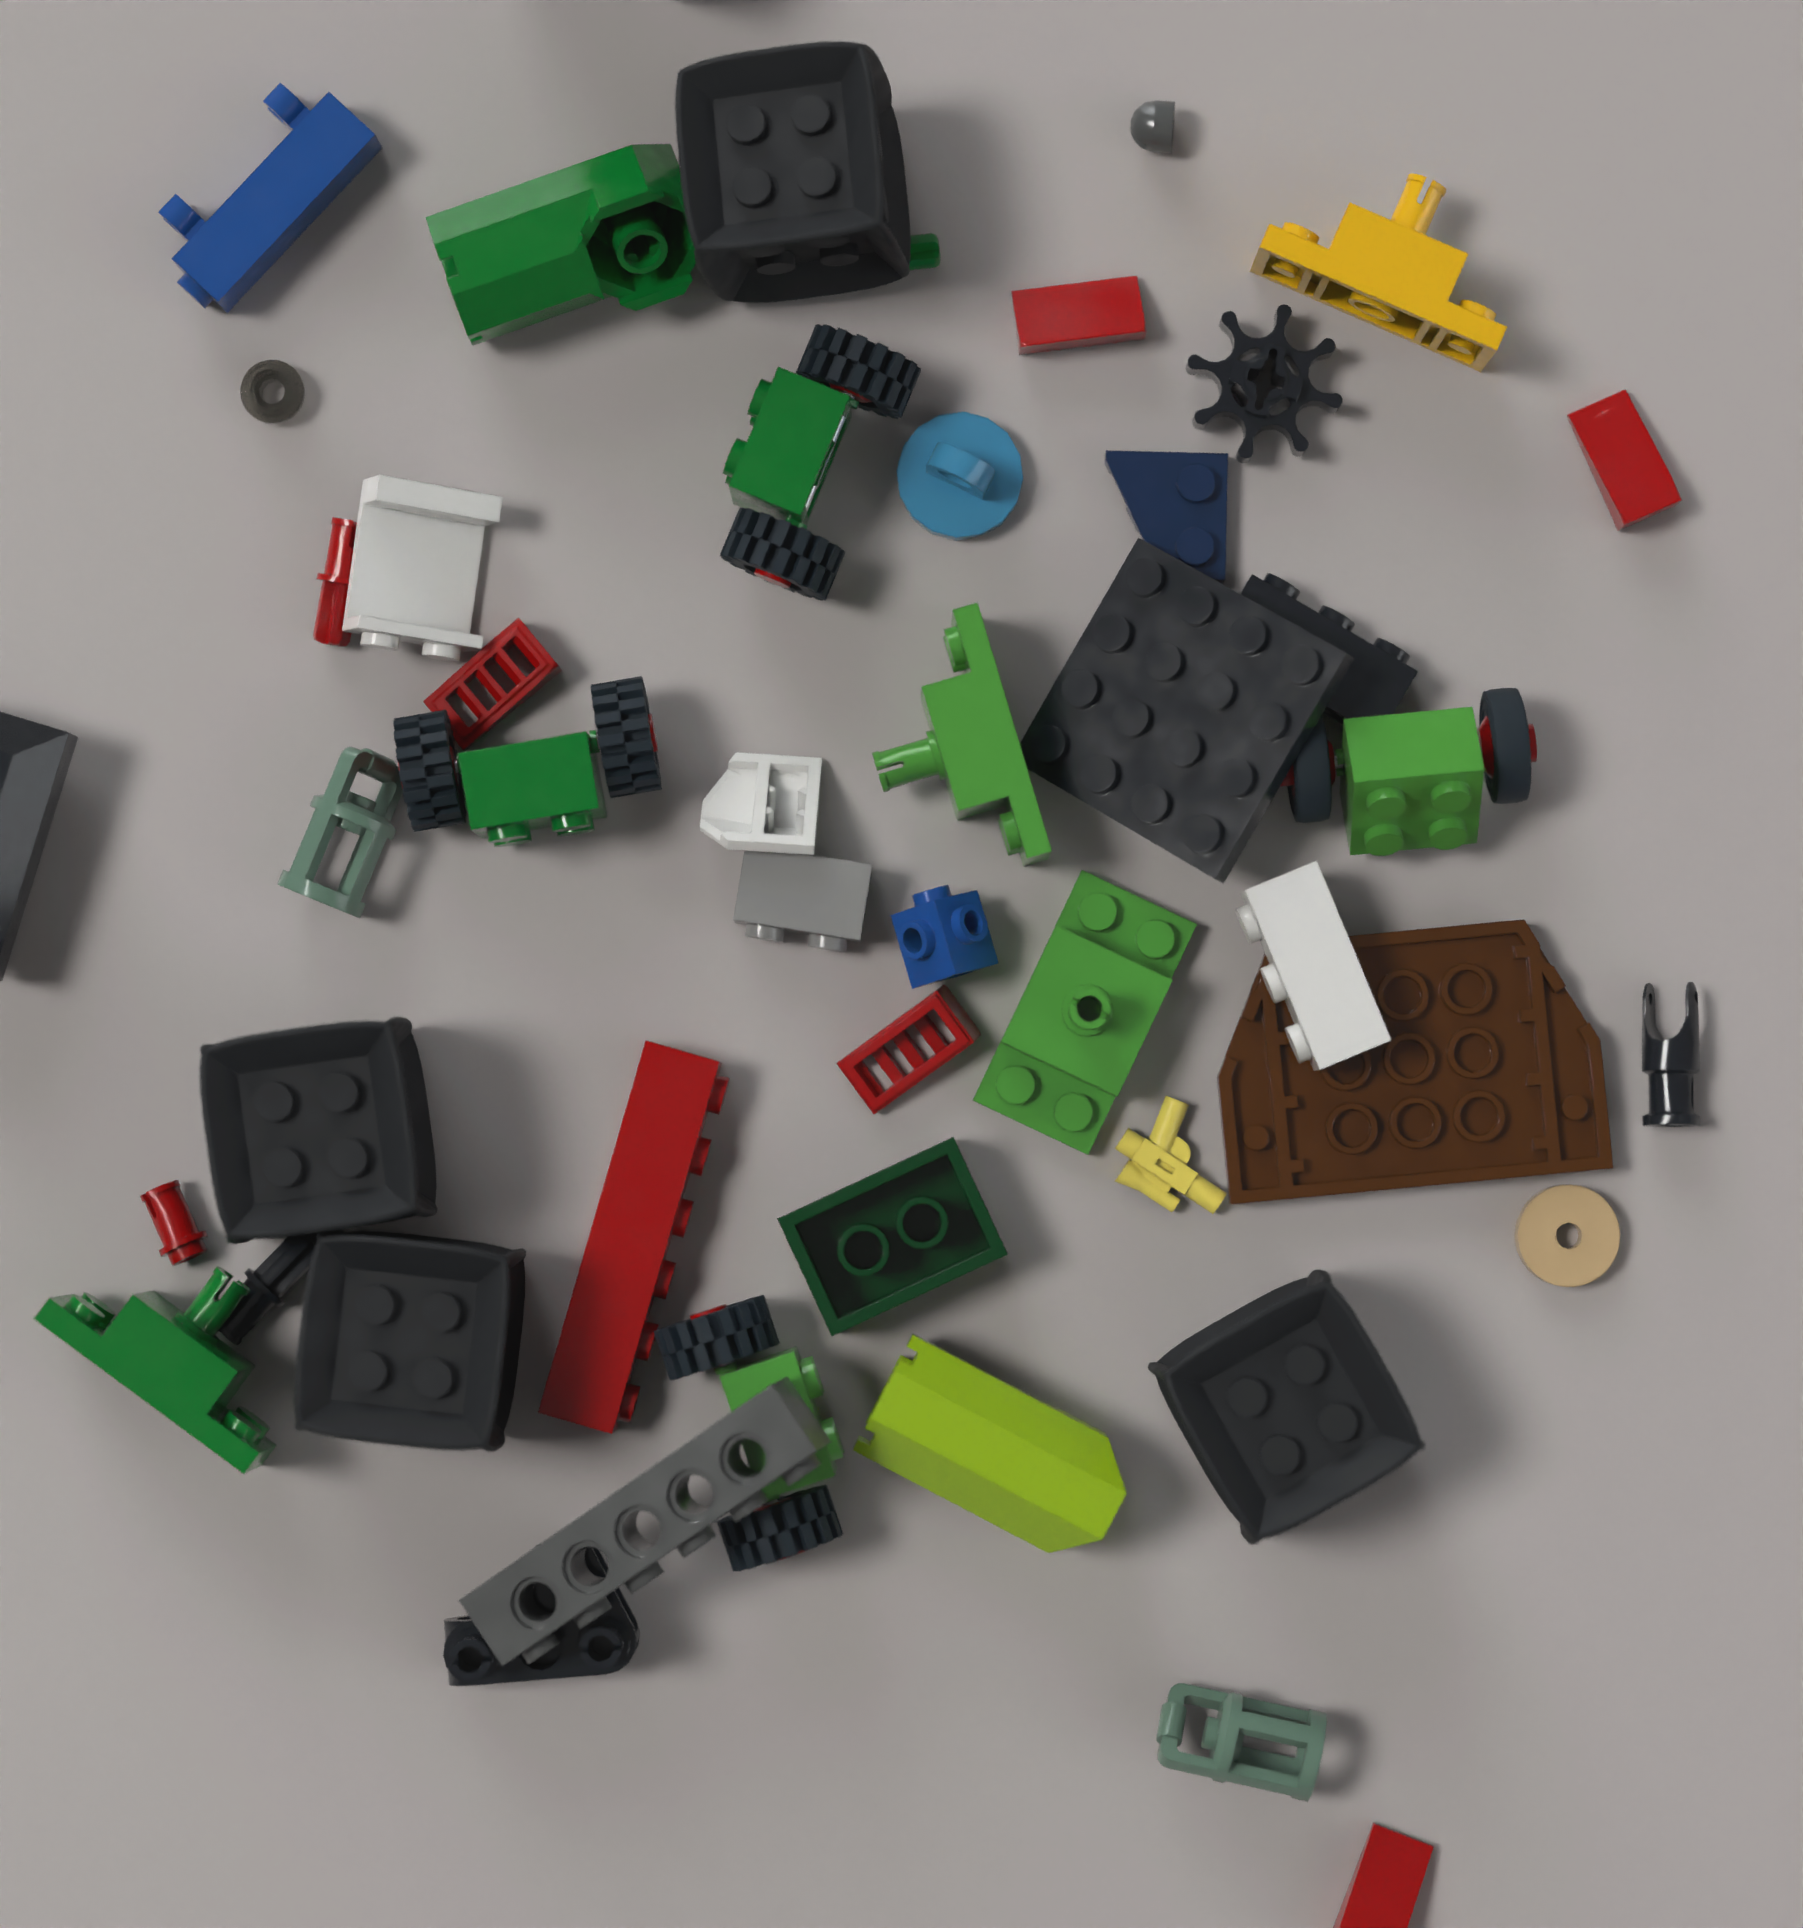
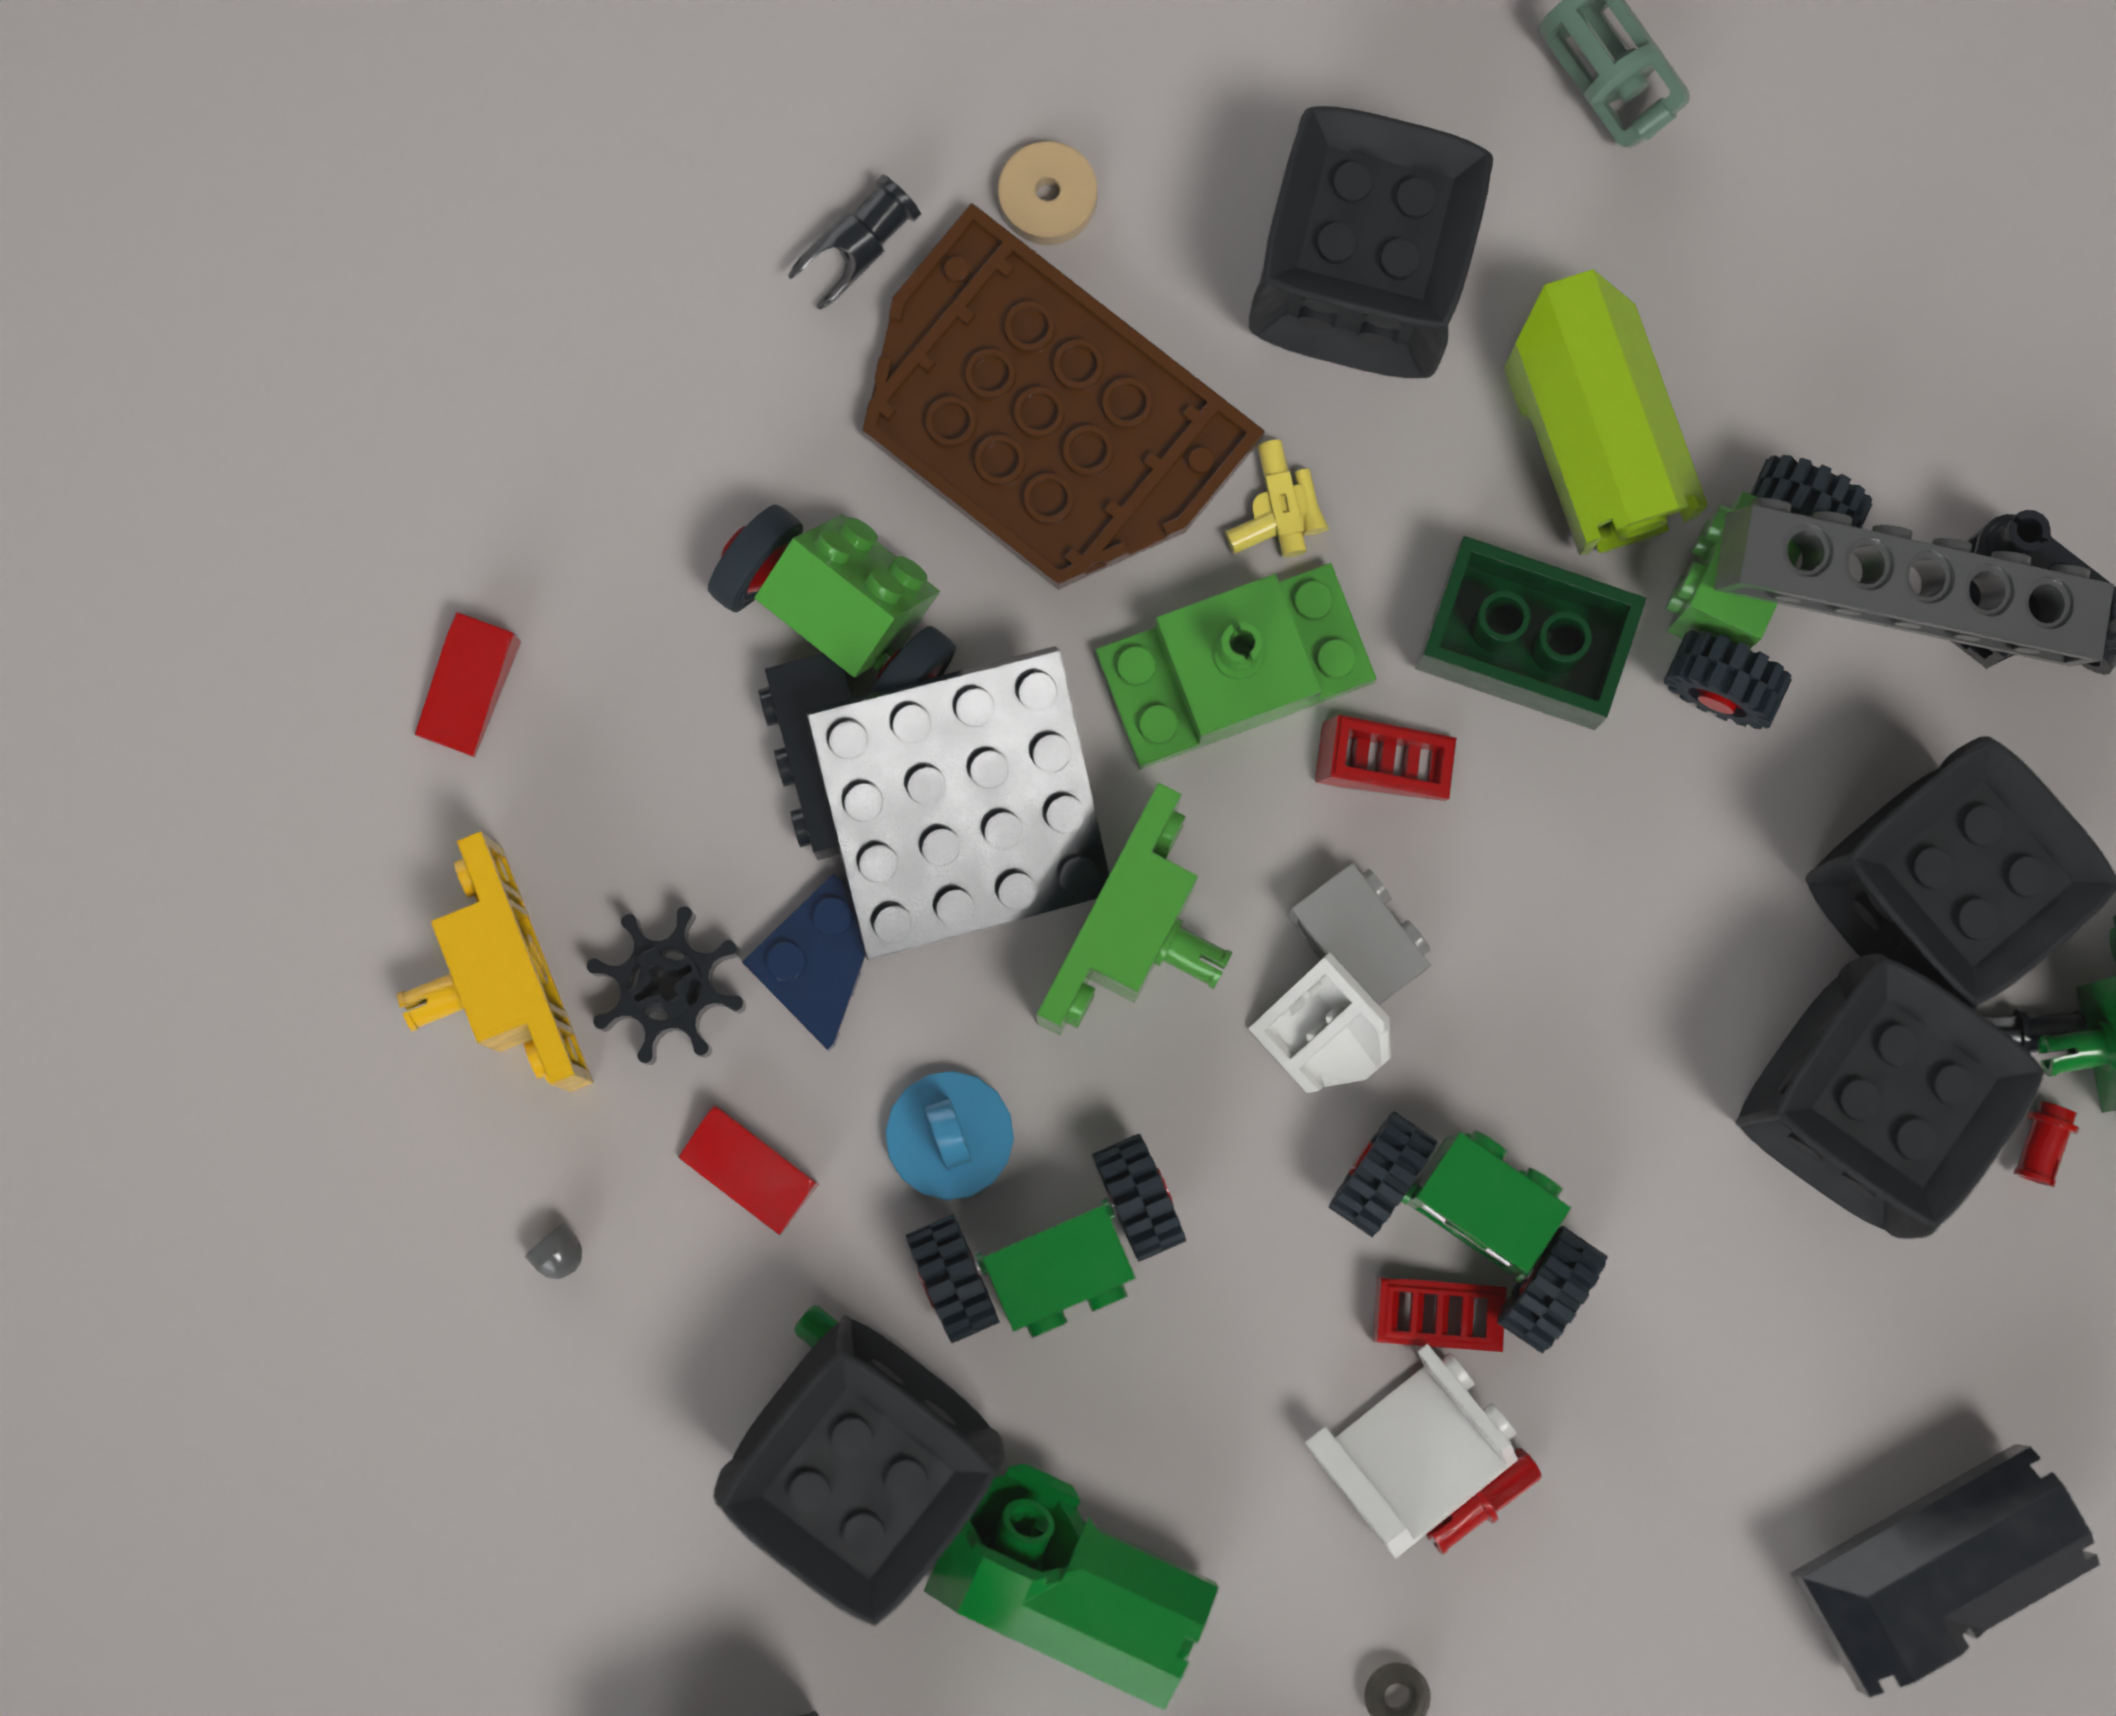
camera: 135 degrees left, 5 degrees down
(352, 813) = (1637, 1313): sand green piece -> none
(631, 1238) = (1717, 814): red brick -> none
(943, 936) = (1288, 809): blue brick -> none
(1312, 967) = (1047, 532): white brick -> none

